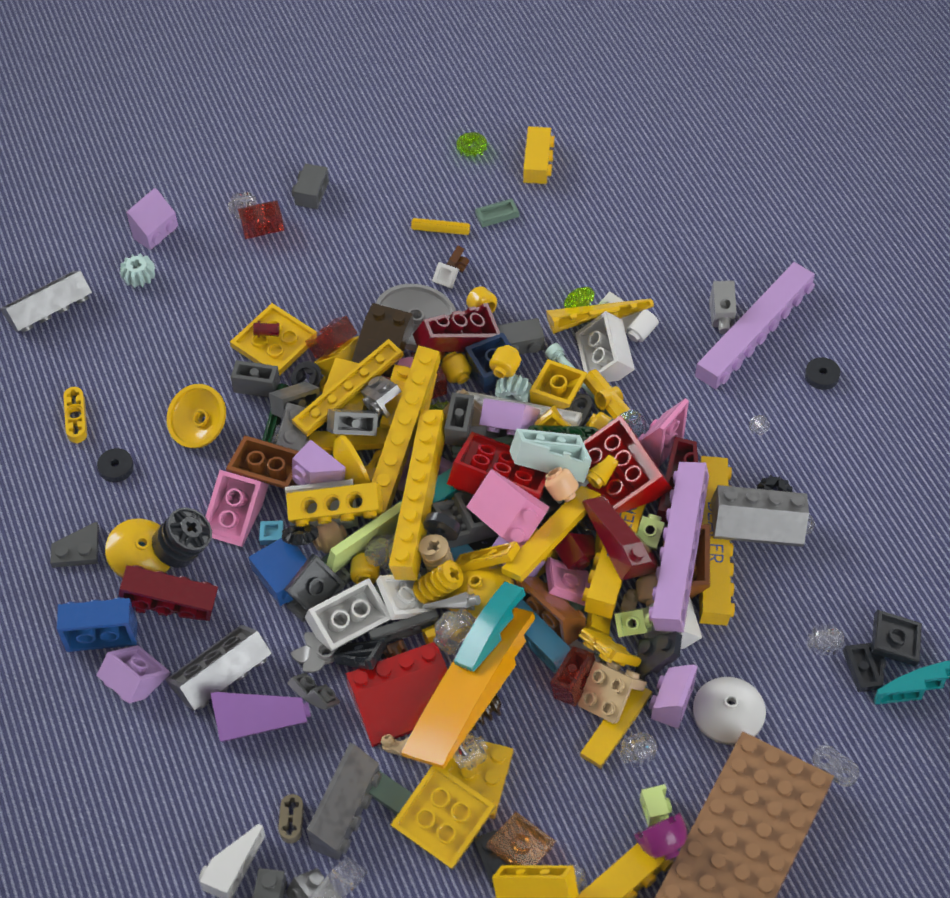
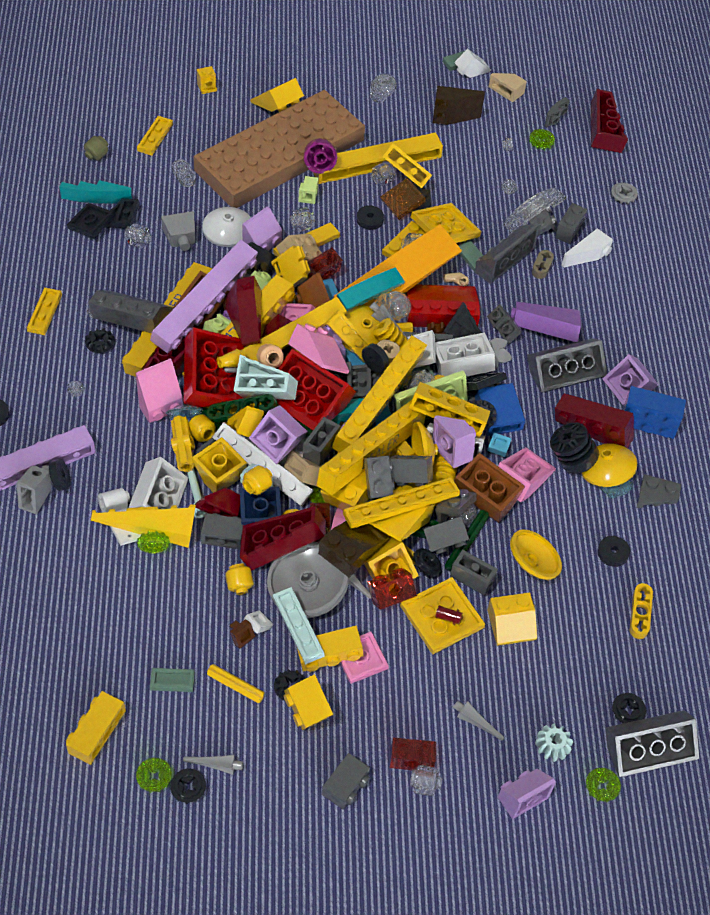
camera: 165 degrees left, 0 degrees up
(80, 318) = (634, 702): none -> black gear
(86, 251) = (603, 775): none -> clear neon green gear
(206, 360) = (512, 618): none -> yellow slope
(219, 270) = (469, 714): none -> light grey piece
(338, 284) = (368, 665): none -> bright pink tile
(366, 219) = (307, 702): none -> yellow slope
(368, 271) = (337, 646): none -> yellow brick
(392, 247) = (280, 682): none -> black gear
(404, 270) = (298, 625): none -> light aqua tile
(420, 169) = (222, 763): none -> light grey piece
(433, 143) = (187, 776): none -> black gear
(537, 351) = (223, 502): none -> dark red slope
(556, 791) = (370, 217): none -> black piece
(708, 326) = (59, 475): none -> black piece
(780, 668) = (179, 229): none -> light grey torso
(860, 504) = (44, 311): none -> yellow tile
(918, 823) = (154, 135): none -> yellow tile

